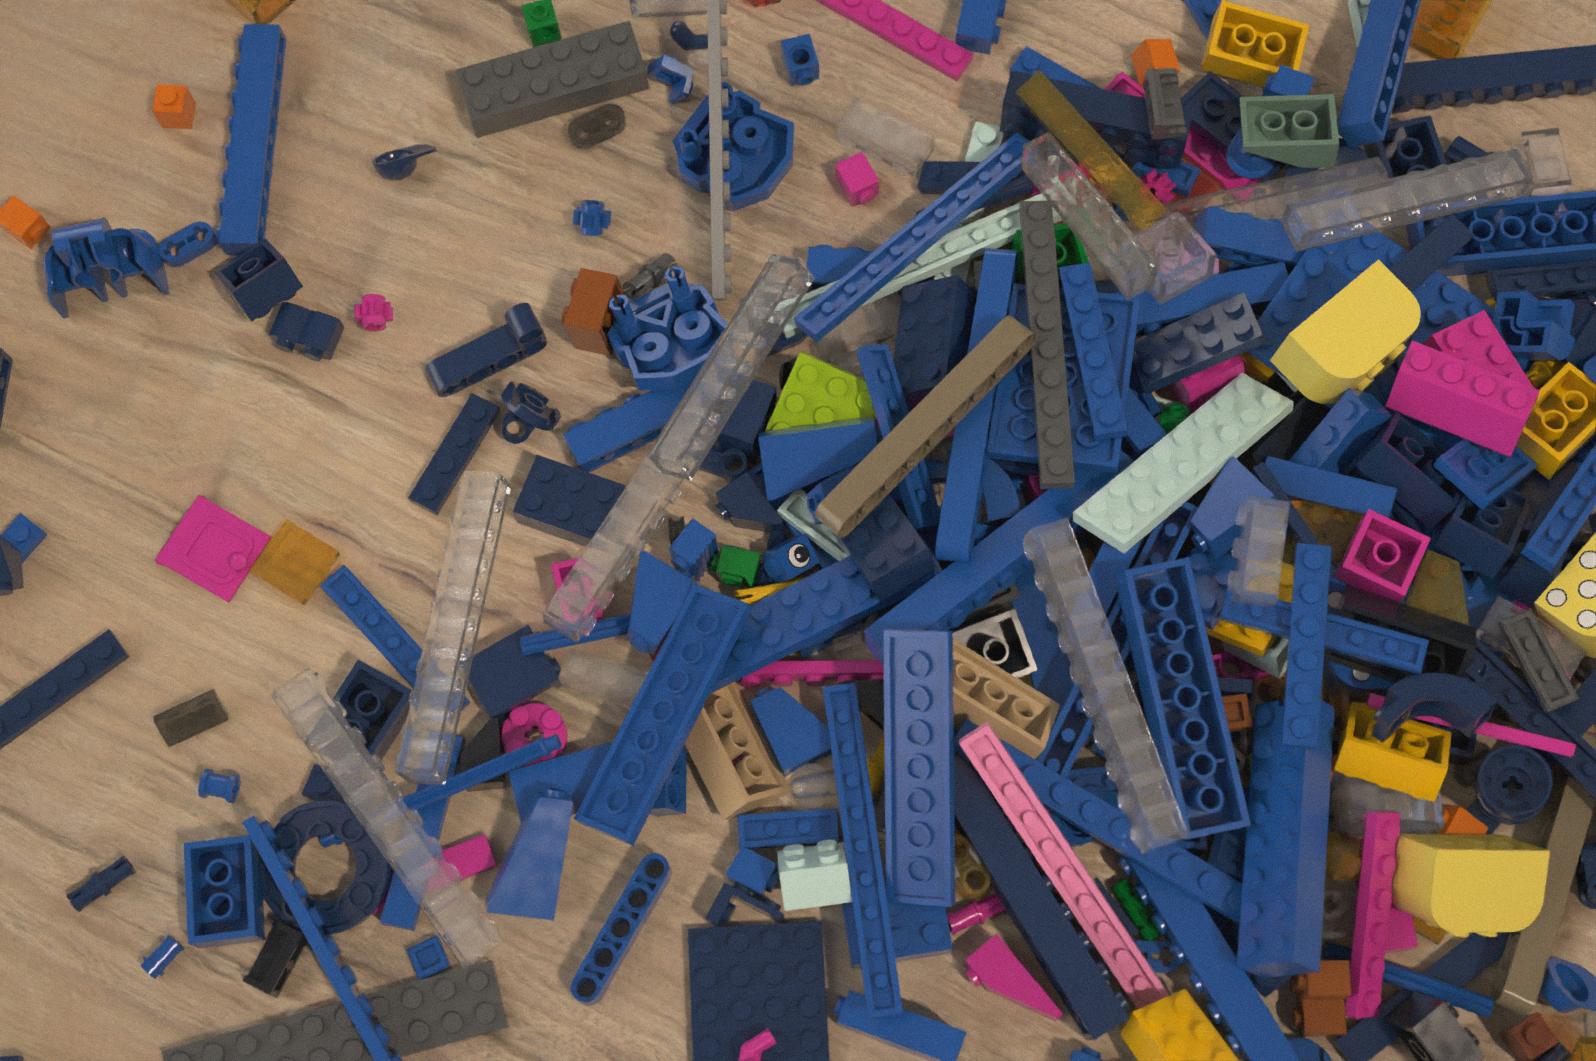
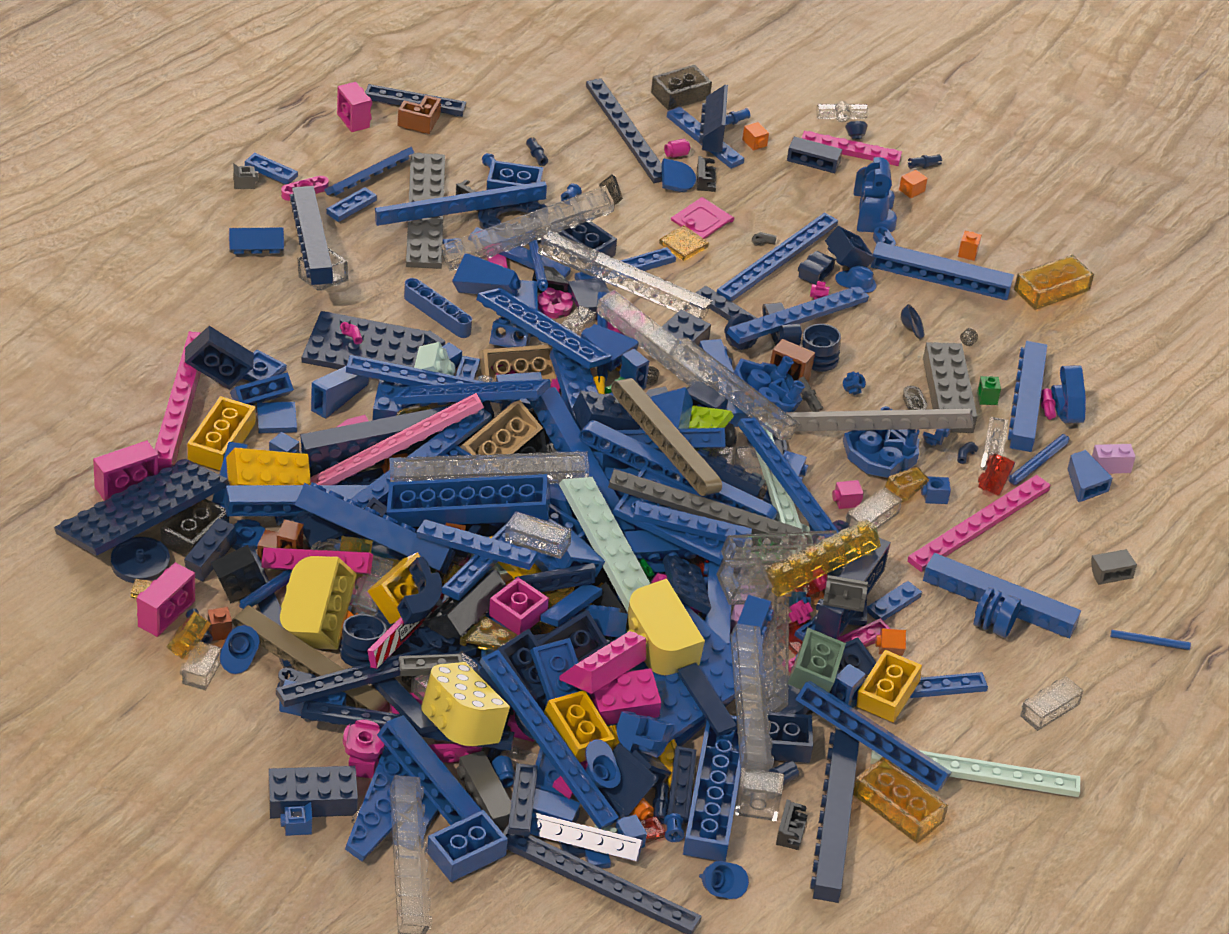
camera: 95 degrees right, 30 degrees down
(25, 633) = (677, 148): none -> dark pink brick
(91, 568) = (706, 175): none -> black hinge
(112, 613) = (677, 176): none -> blue tile
(242, 436) = (761, 238): none -> dark grey arm
(293, 399) = (777, 257): none -> blue plate
(314, 265) = (857, 276): none -> blue piece
(412, 73) = (966, 339): none -> clear smoke bush
(460, 328) = (797, 314): none -> blue plate
(526, 261) = (826, 343): none -> dark blue wheel
(816, 98) = (906, 483): none -> clear yellow slope
(1573, 130) = (792, 825): none -> black hinge

